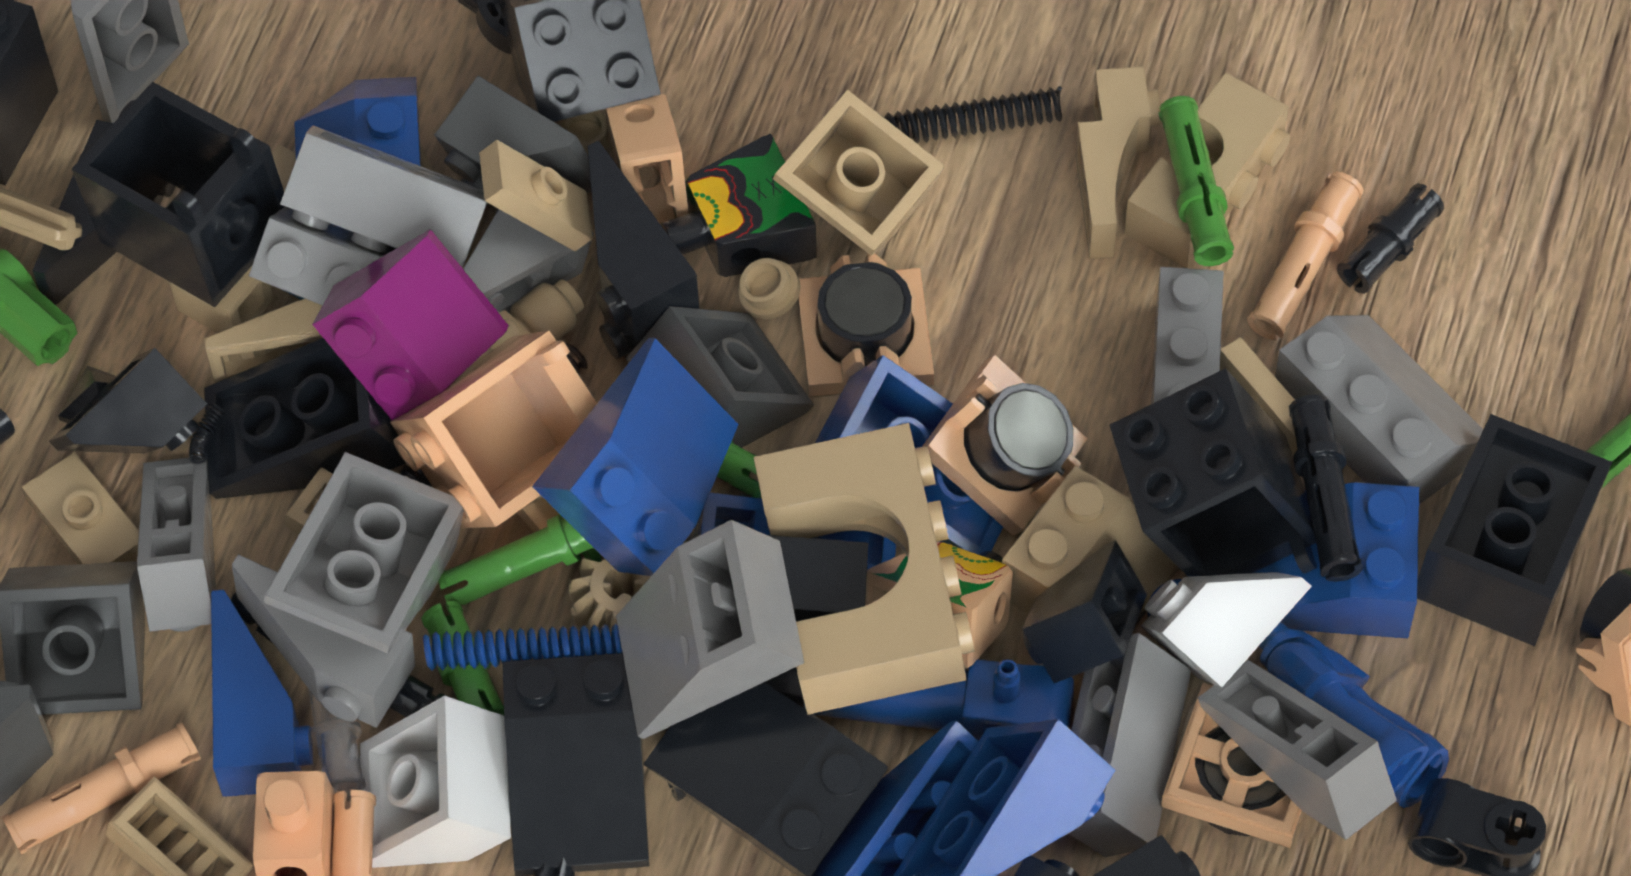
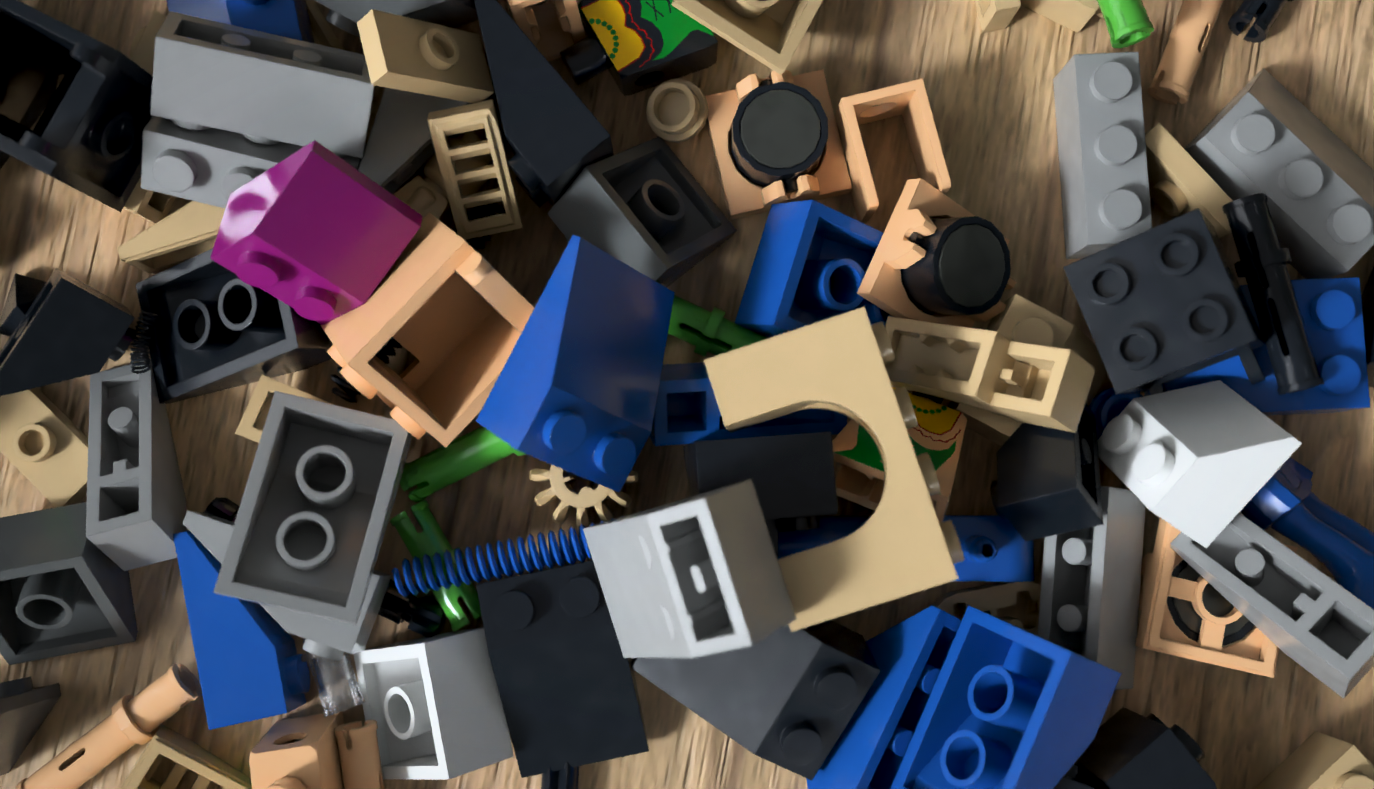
camera: 10 degrees left, 25 degrees up
(563, 250) = (466, 119): none -> tan slope
(994, 307) = (901, 99): none -> light nougat piece
(1029, 516) = (990, 372): none -> tan slope

